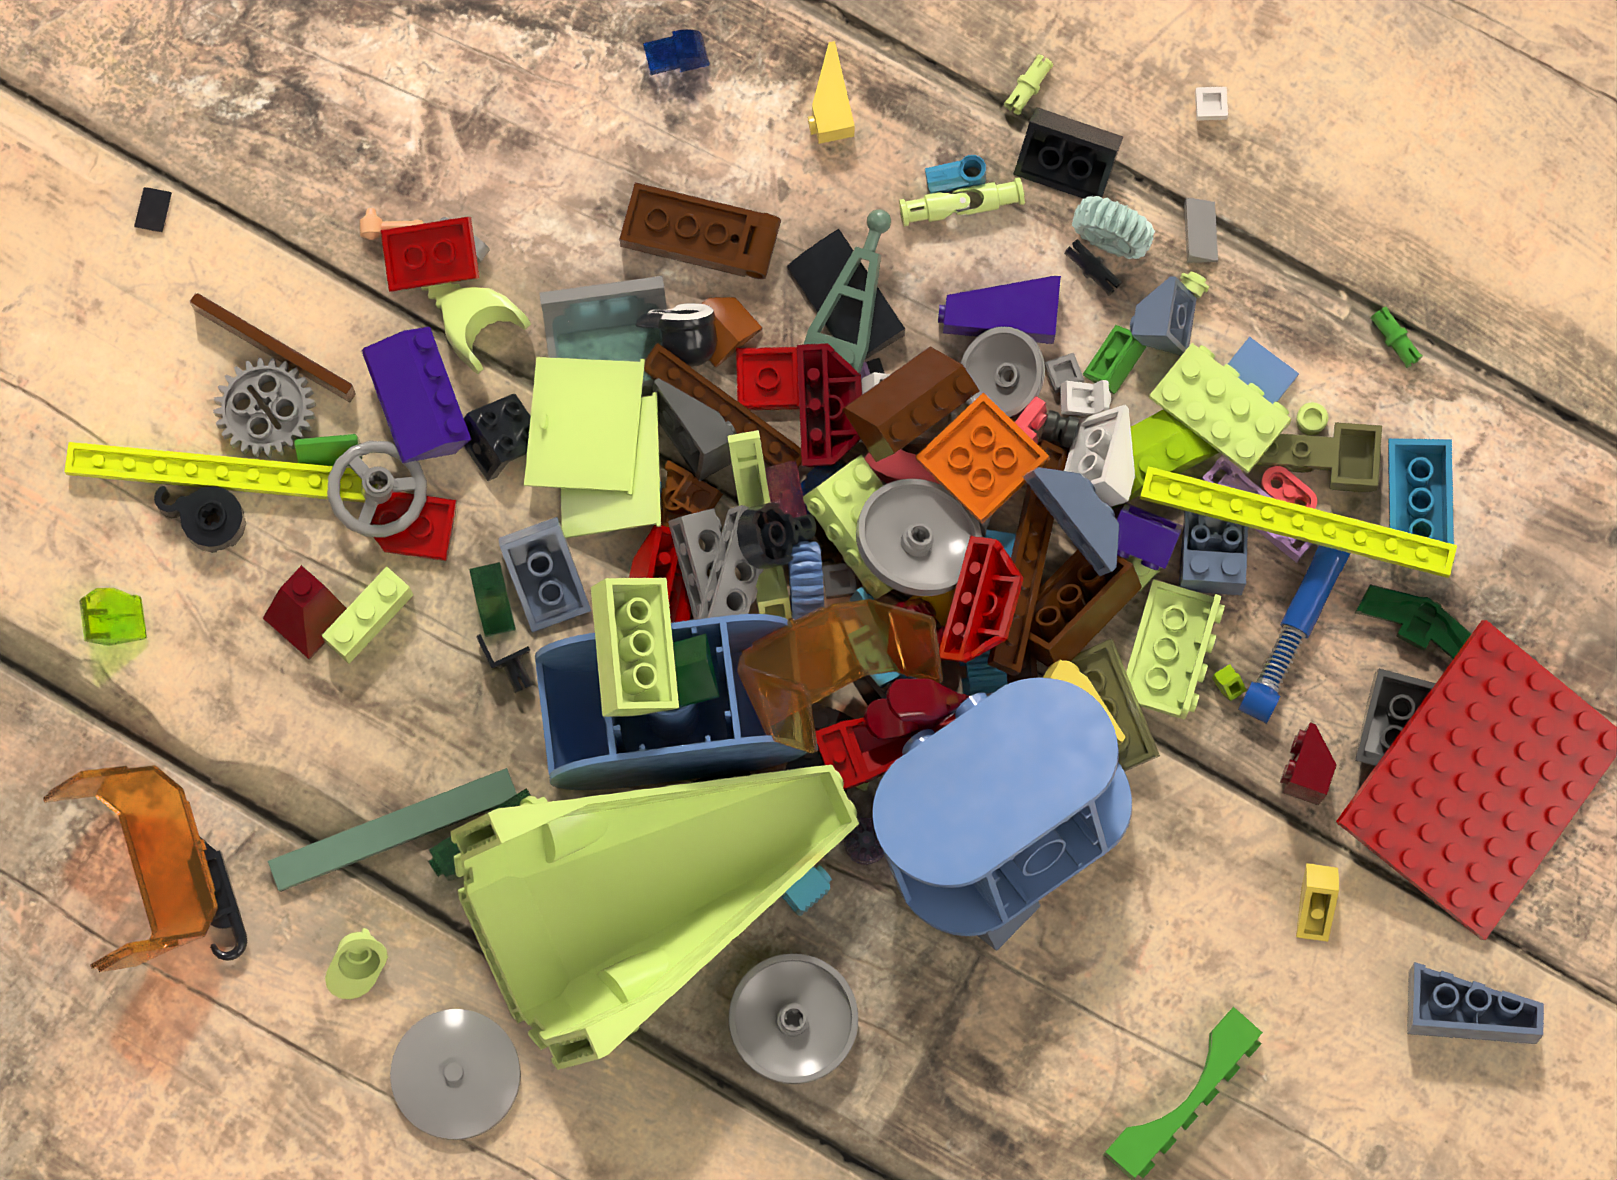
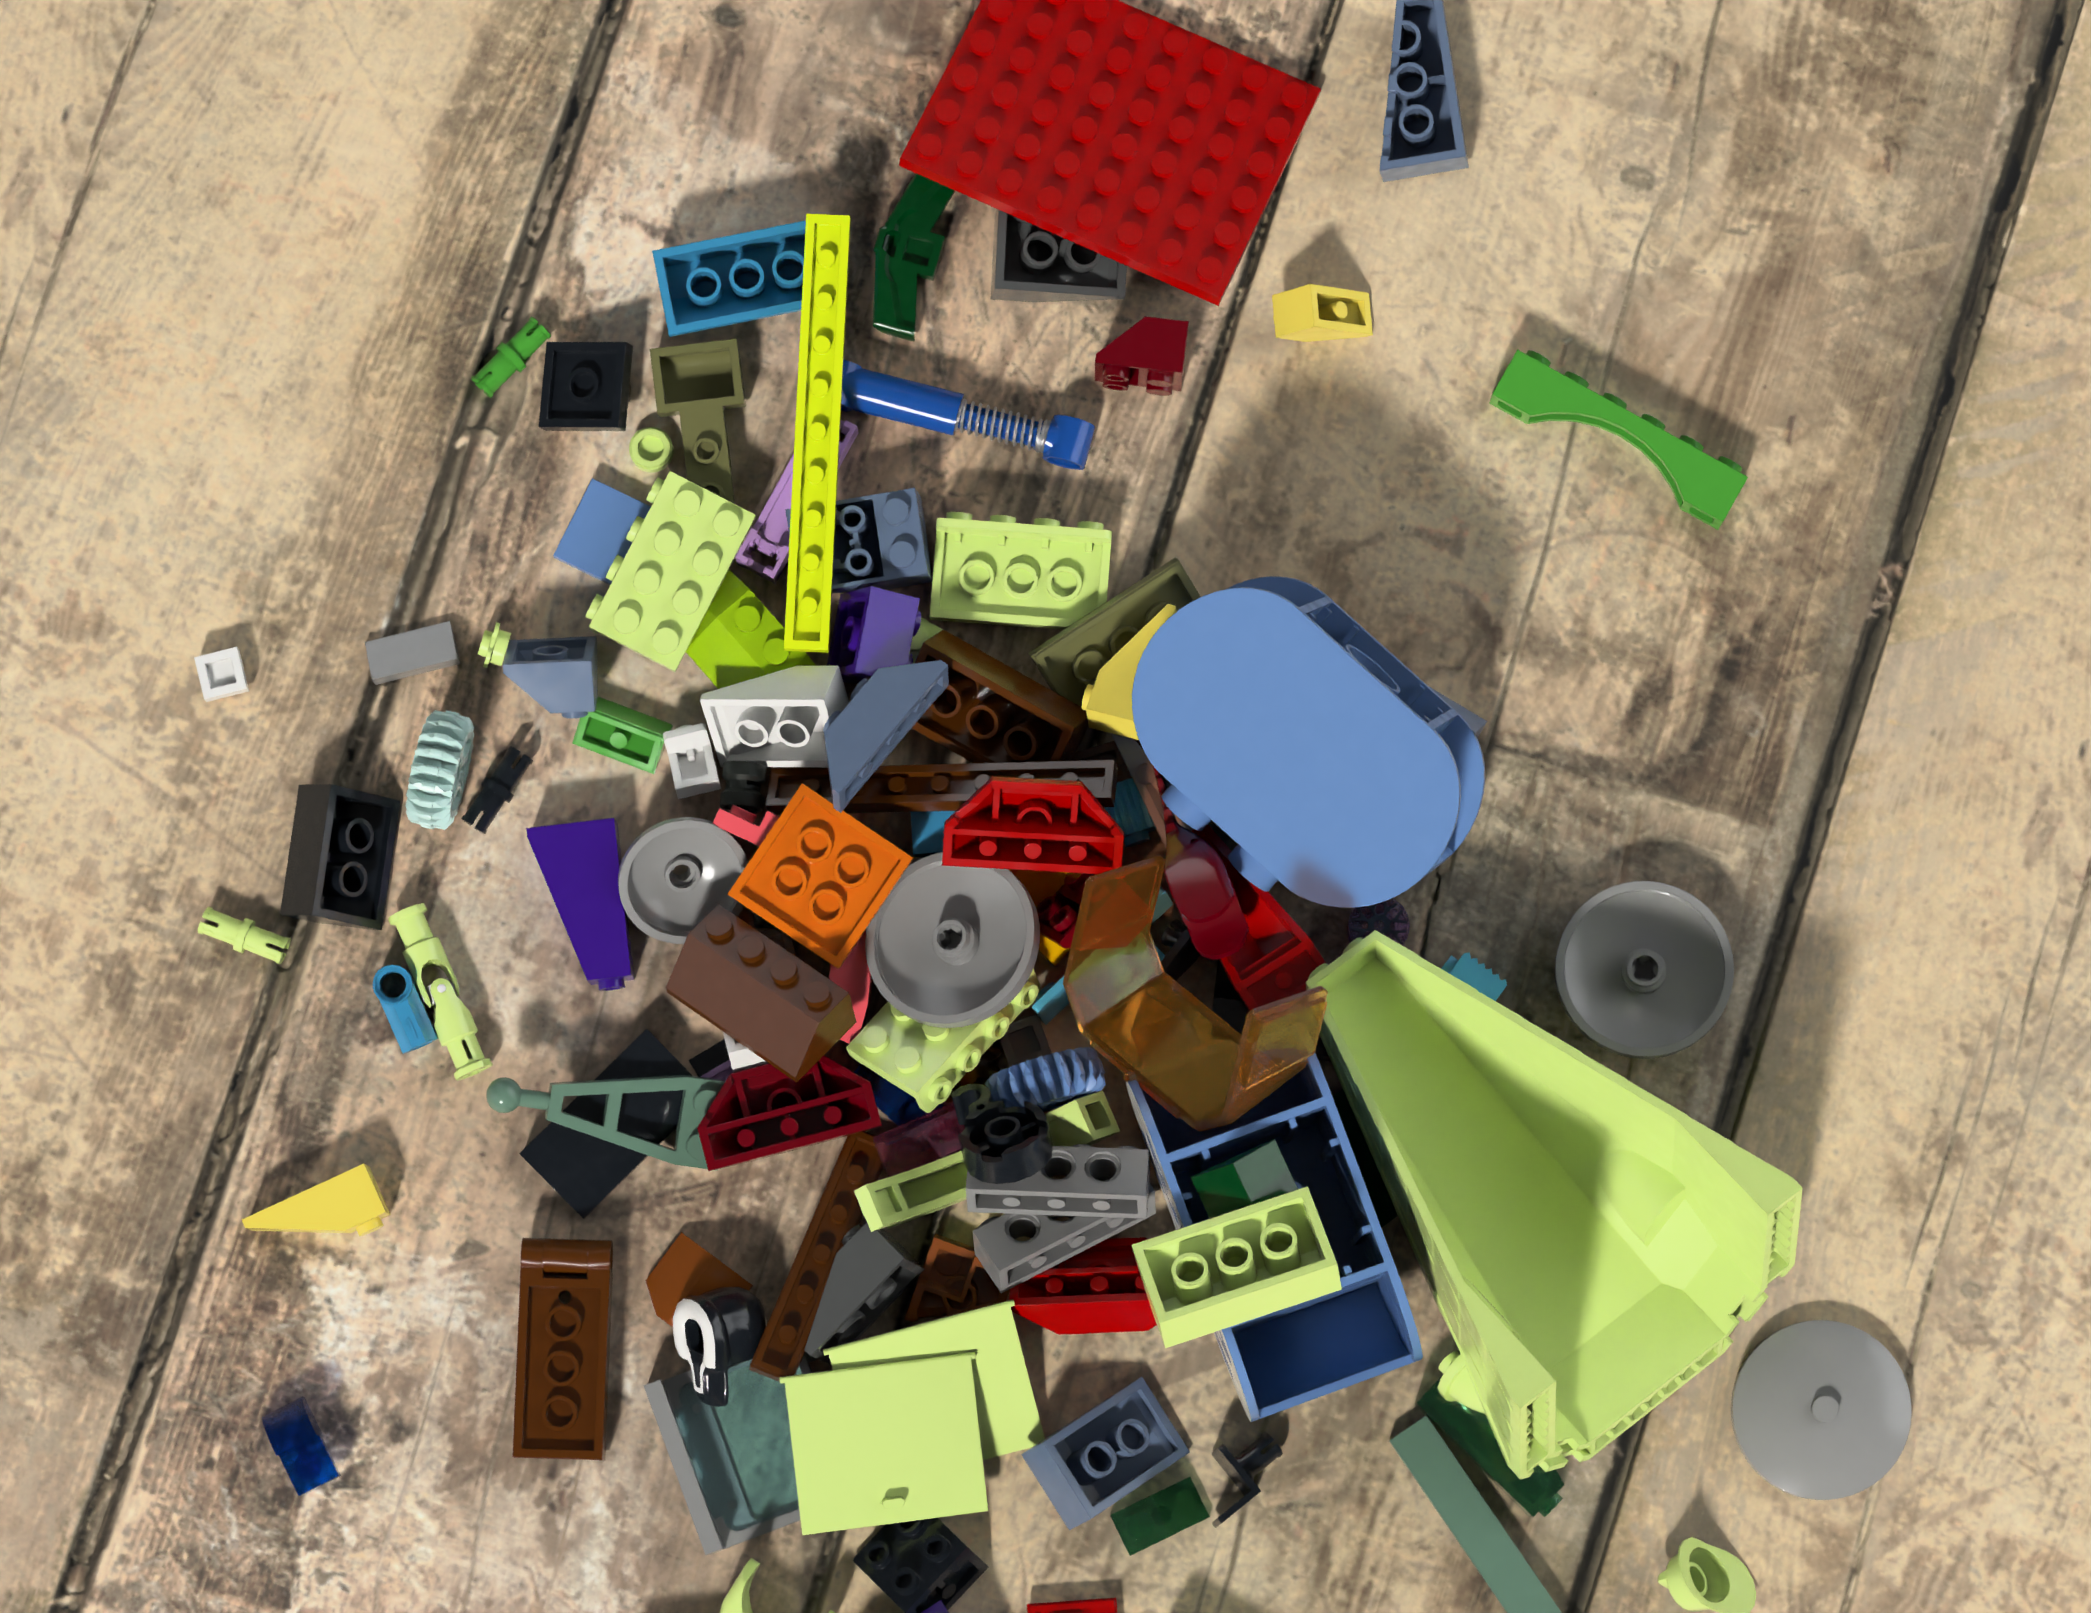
camera: 100 degrees left, 5 degrees up
(767, 378) = (754, 1207): red tile -> none
(1062, 370) = (657, 798): light grey tile -> none
(1229, 682) = (1049, 487): lime piece -> none
(1291, 489) = (764, 460): coral plate -> none
(1364, 381) = (586, 386): none -> black hinge

